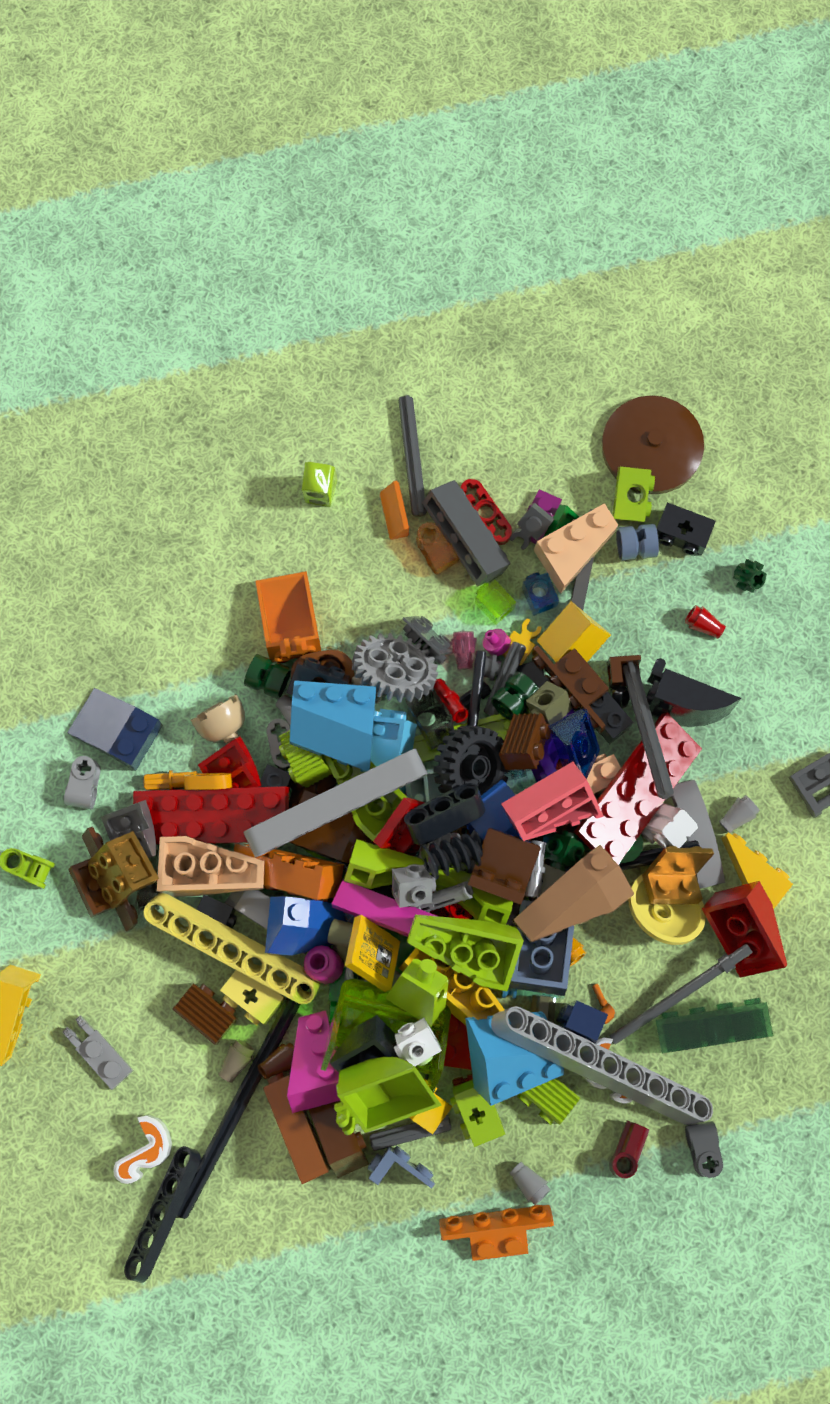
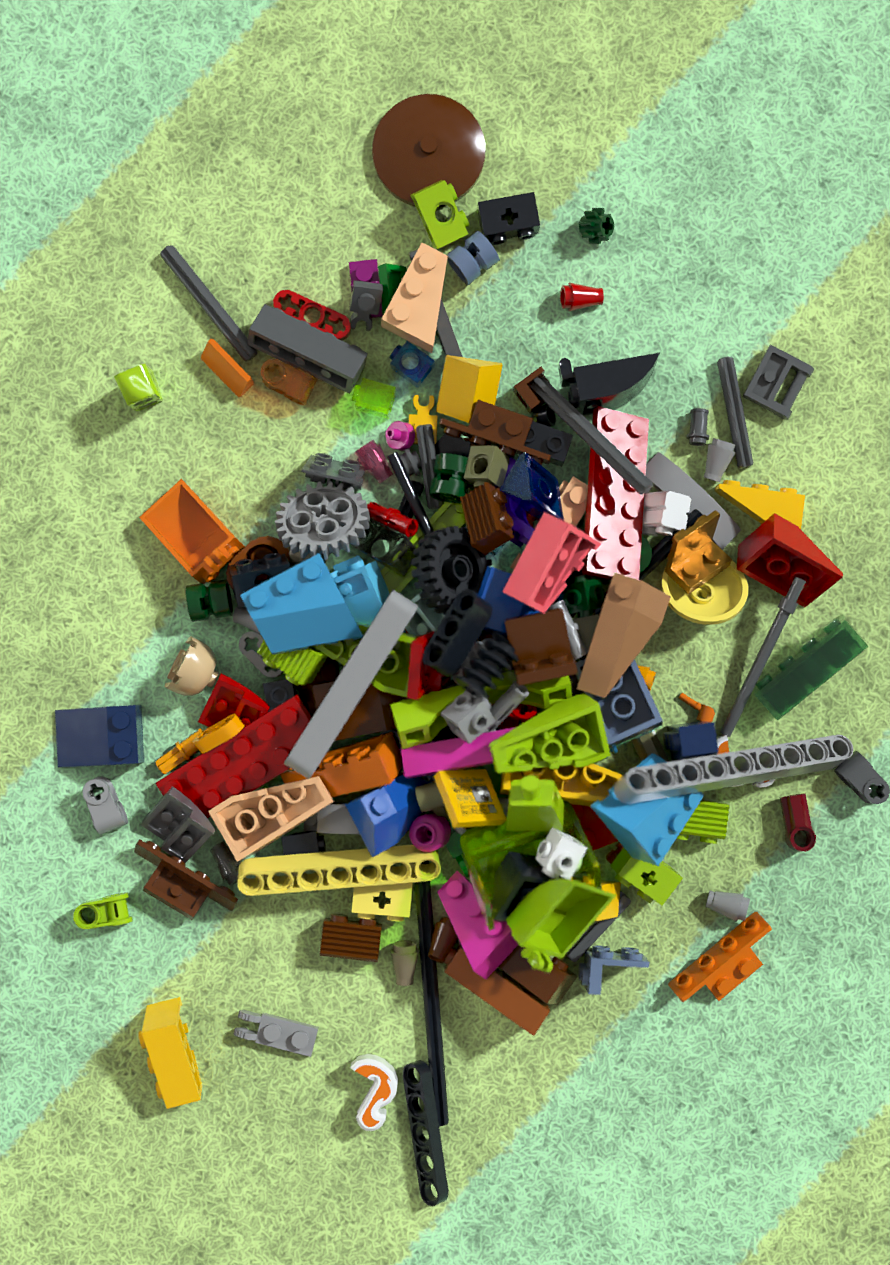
camera: 30 degrees left, 10 degrees up
(121, 869) = (193, 862): pearl gold bracket -> none
(734, 785) = (698, 427): none -> dark grey pin
(775, 786) = (735, 412): none -> dark grey axle

